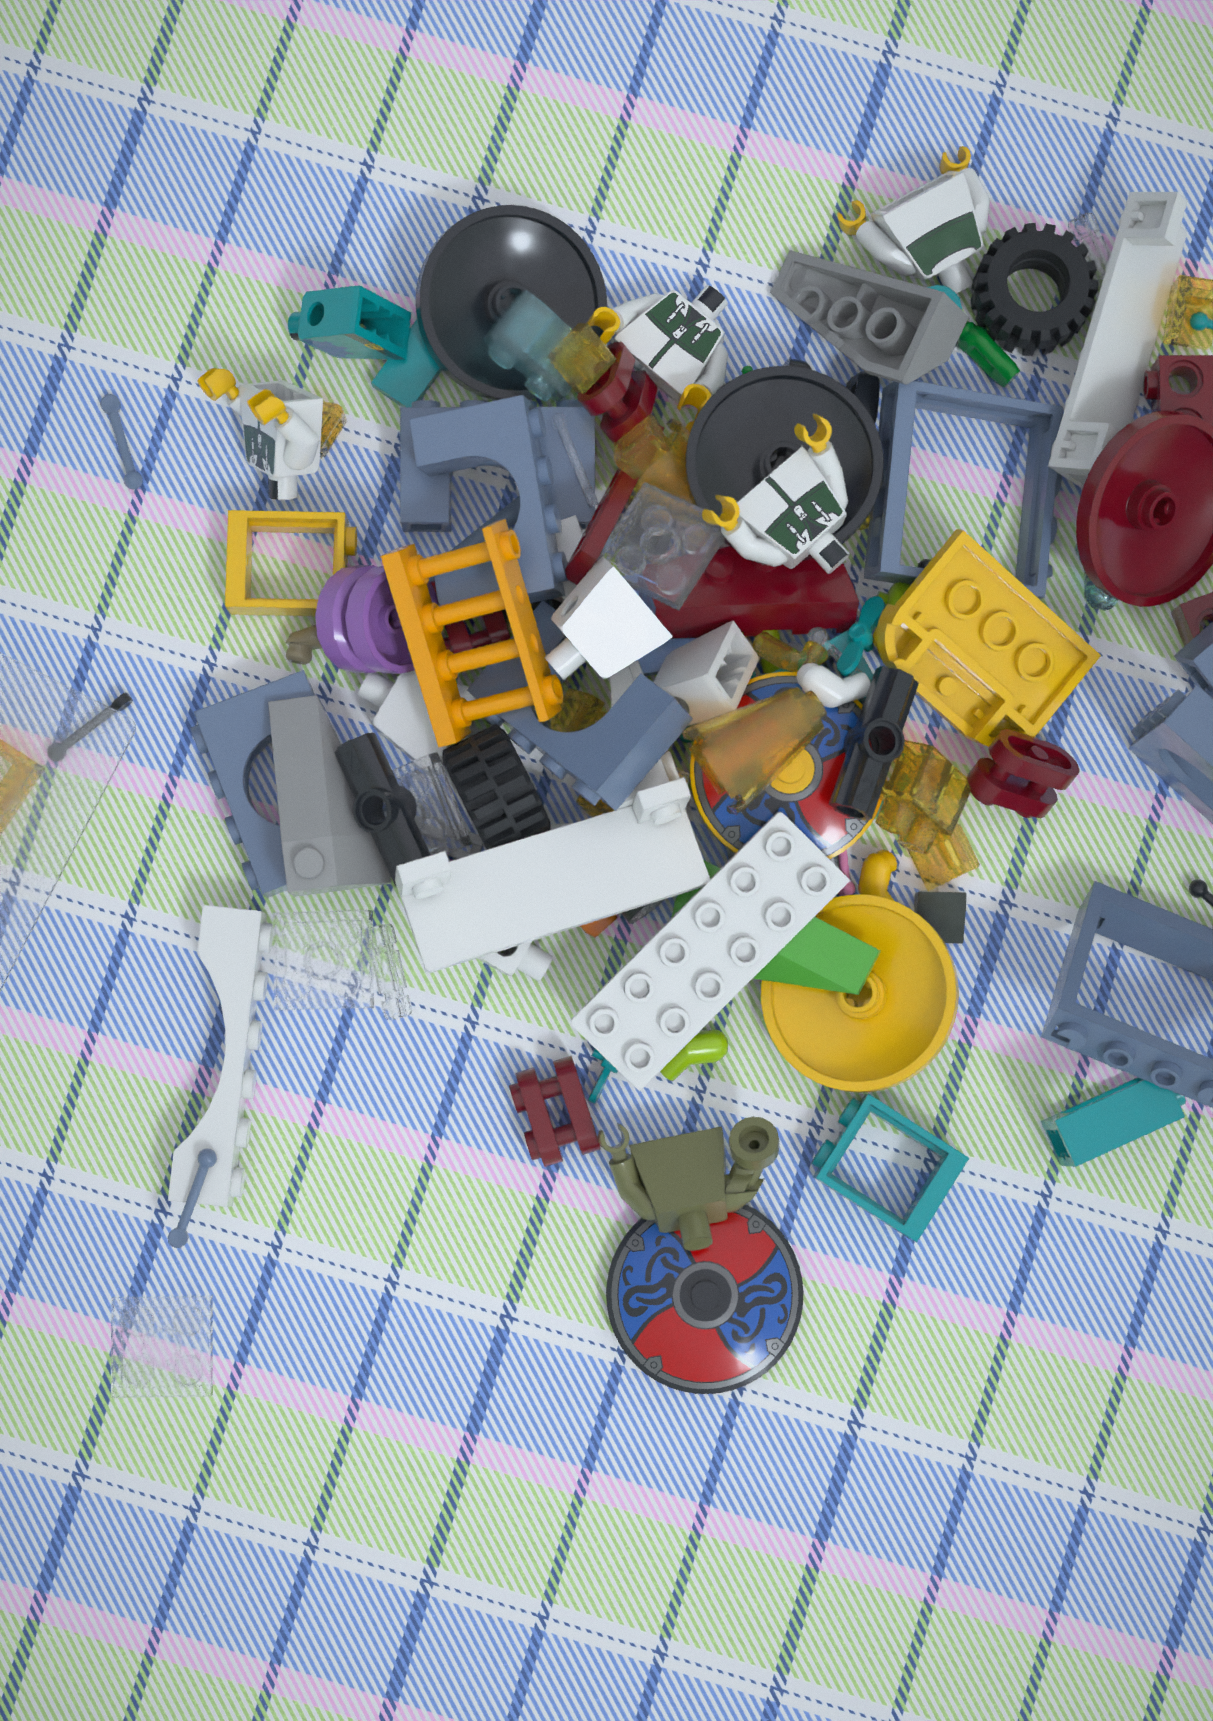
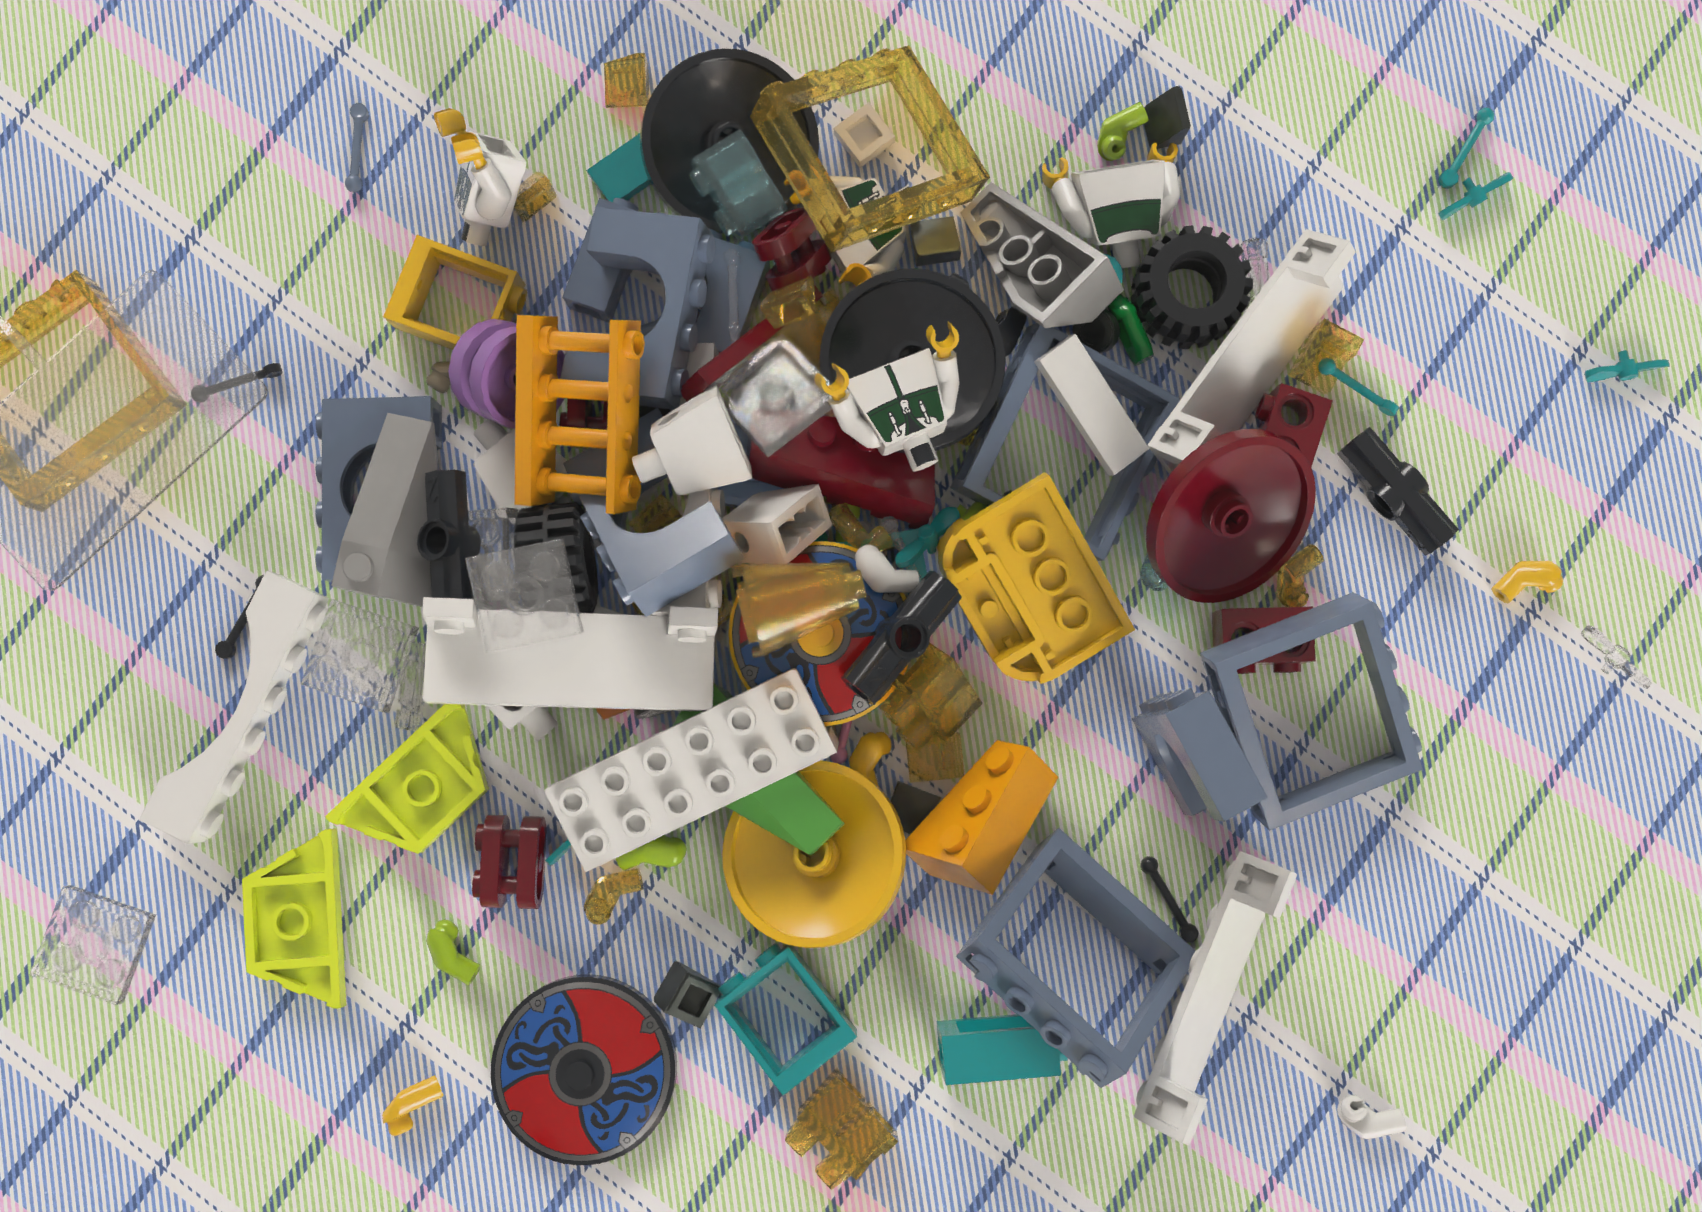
camera: 20 degrees right, 0 degrees up
(179, 1236) = (137, 854): sand blue hinge -> none
(181, 1003) = (227, 649): none -> black hinge
(333, 319) = (571, 100): teal torso -> none
(360, 1248) = (297, 921): none -> neon yellow wing
(379, 272) = (627, 81): none -> clear yellow slope
(433, 1069) = (419, 785): none -> neon yellow wing
(490, 831) = (524, 595): none -> clear plate
(521, 1227) = (445, 953): none -> lime arm
(540, 1386) = (408, 1100): none -> yellow arm
(581, 358) = (768, 206): clear yellow tile -> none
(616, 315) = (812, 184): none -> clear yellow window
(643, 247) = (864, 135): none -> white plate
(662, 1107) = (607, 891): none -> clear yellow arm
(684, 1176) = (602, 964): olive torso -> none
(755, 330) = (935, 241): none -> pearl dark grey slope
(785, 1185) = (687, 994): none -> pearl dark grey slope
(898, 155) = (1115, 130): none -> lime arm
(946, 123) = (1167, 119): none -> pearl dark grey slope
(958, 370) = (1100, 333): none -> pearl dark grey tile
(978, 445) = (1091, 405): none -> white tile
(1003, 1269) = (844, 1126): none -> clear yellow hips
(1016, 898) = (983, 818): none -> light orange wedge
(1022, 774) = (1027, 709): dark red brick -> none

